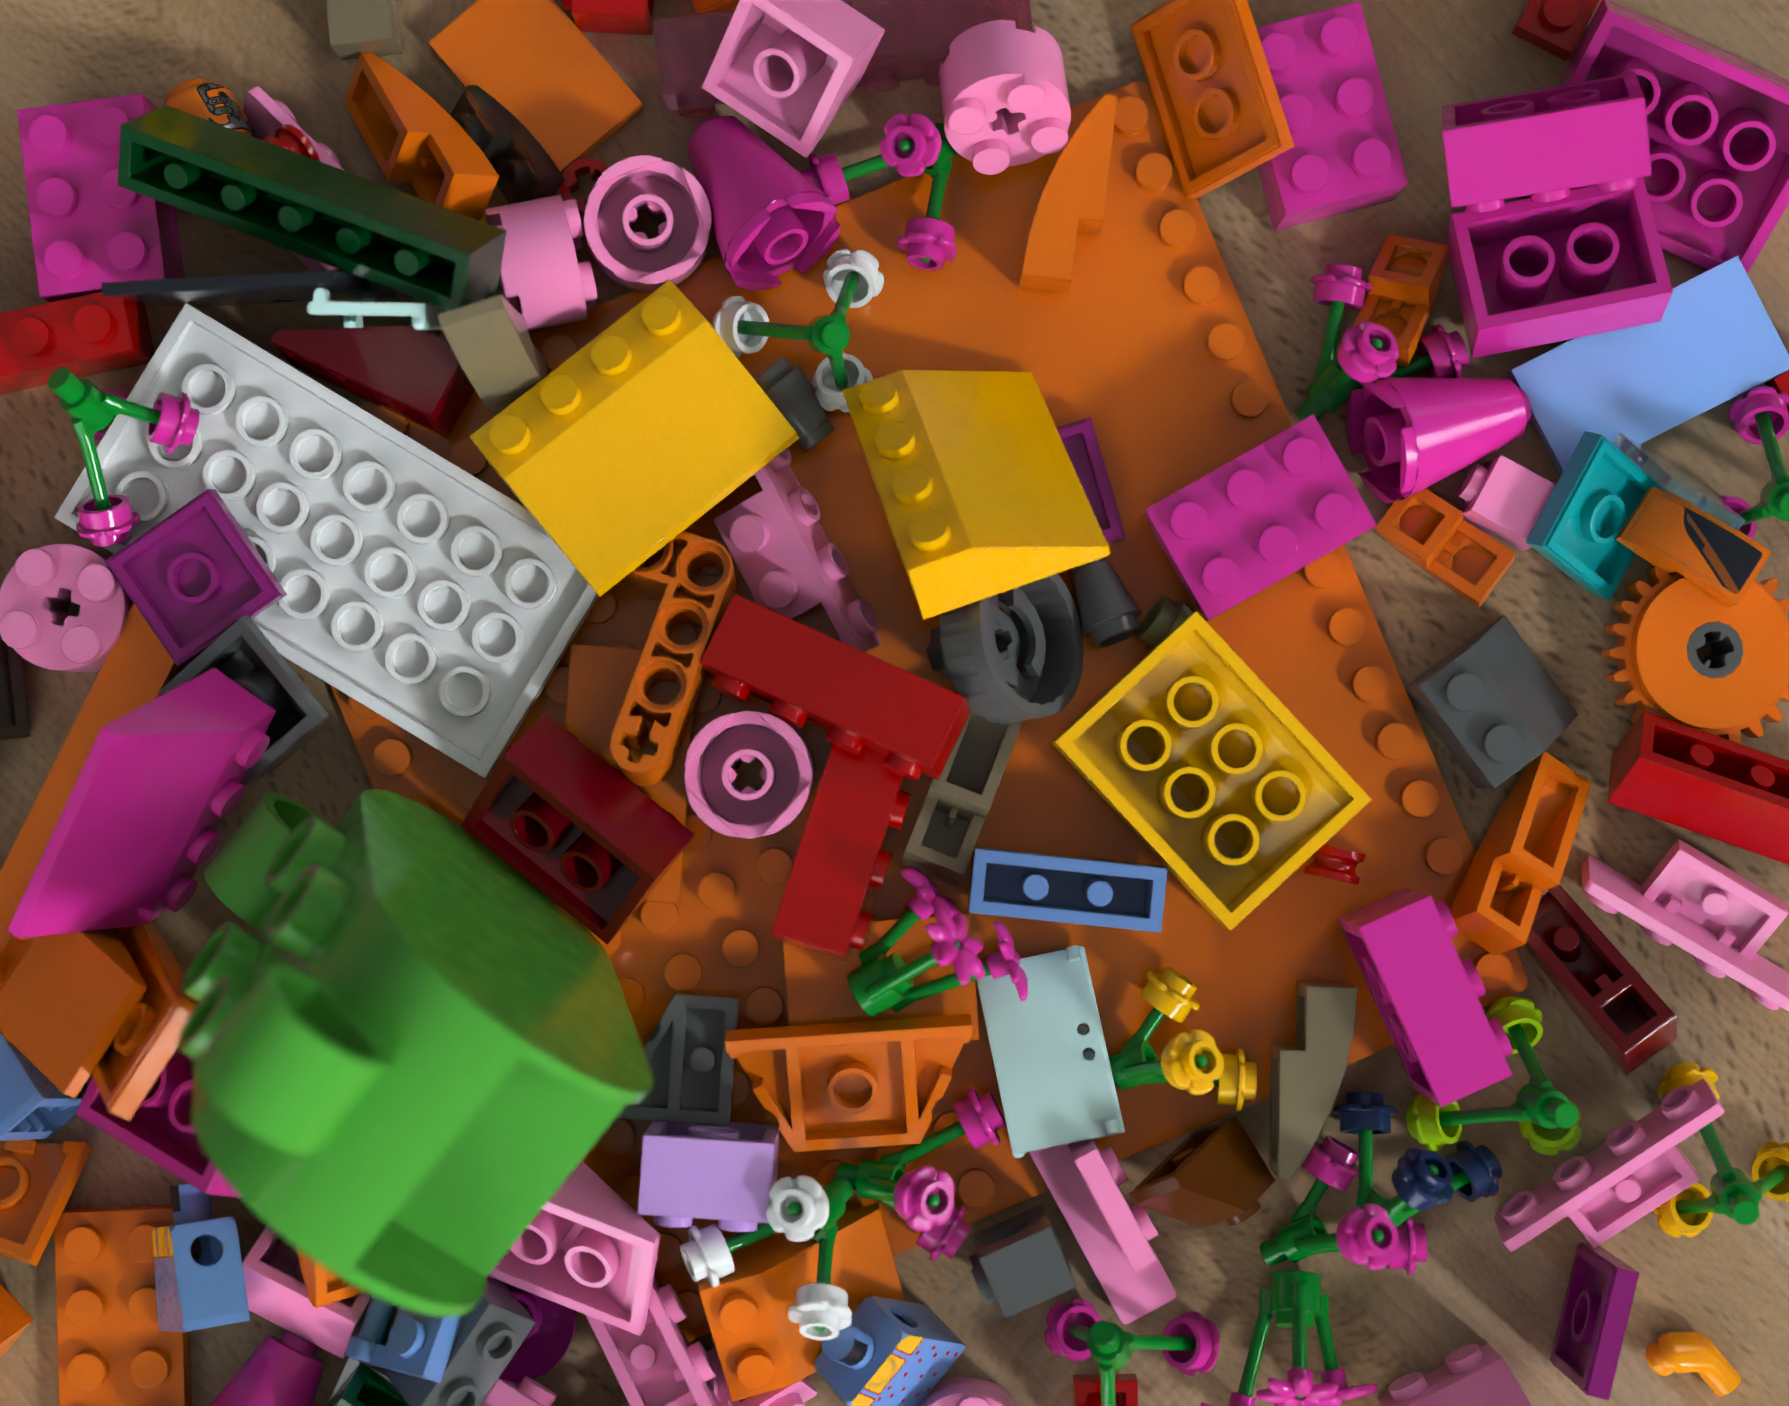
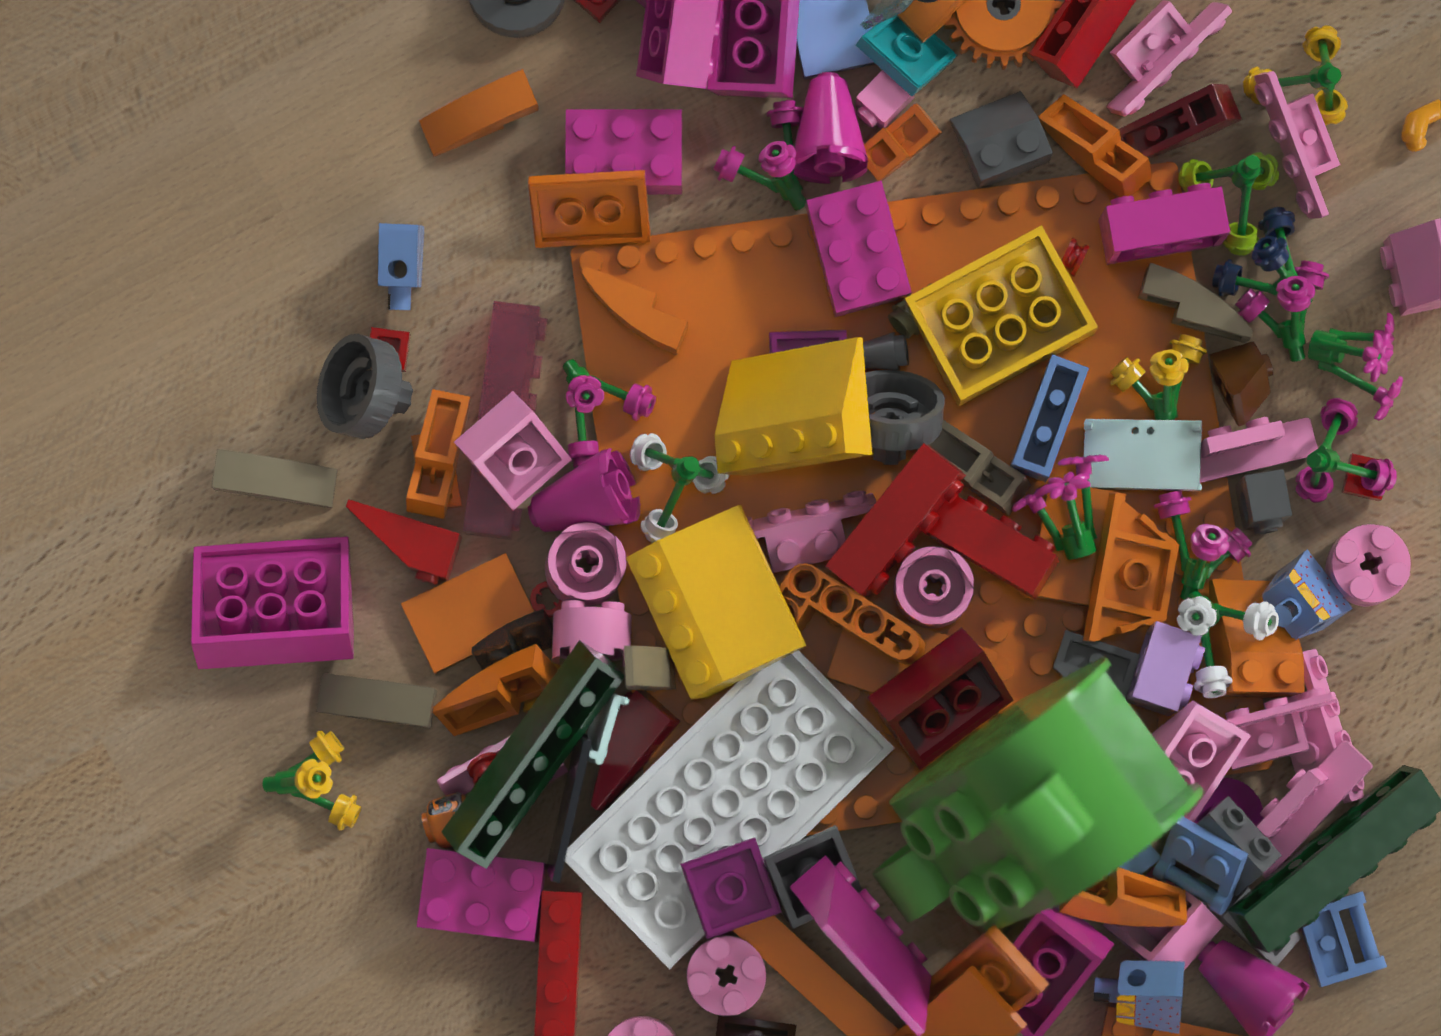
camera: 75 degrees left, 5 degrees down
(170, 422) = (616, 924): plant -> none
(796, 401) = (712, 504): dark grey cone -> none
(1004, 96) = (567, 332): bright pink brick -> none
(1404, 290) = (741, 128): orange slope -> none
(1594, 1319) = (1379, 176): magenta tile -> none

